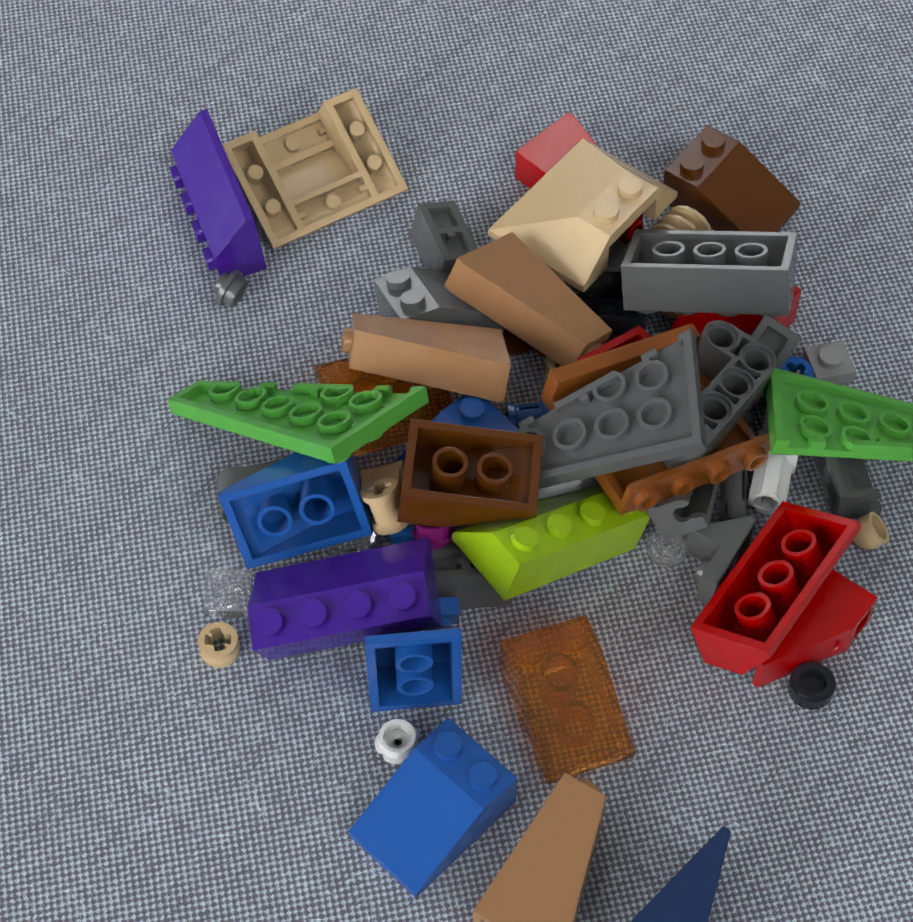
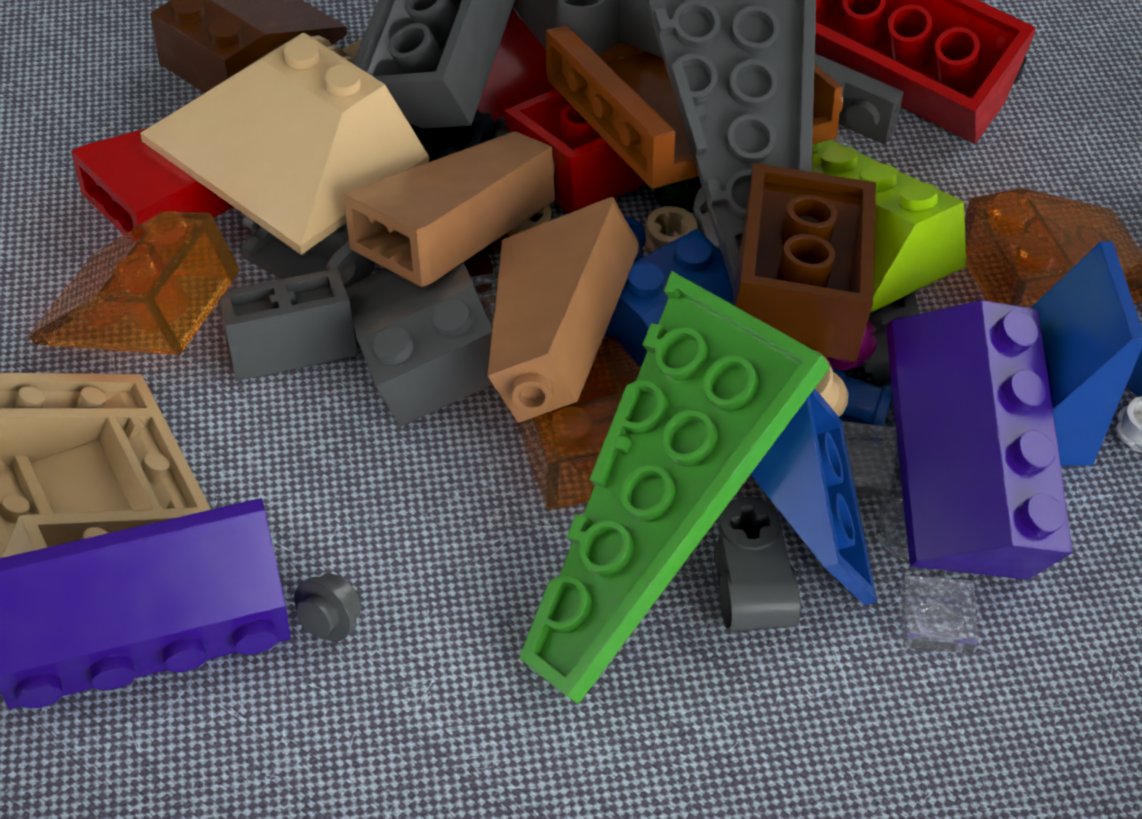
camera: 90 degrees left, 5 degrees down
(216, 631) = (1035, 618): tan bush -> none
(447, 167) = (144, 288): none -> clear orange slope

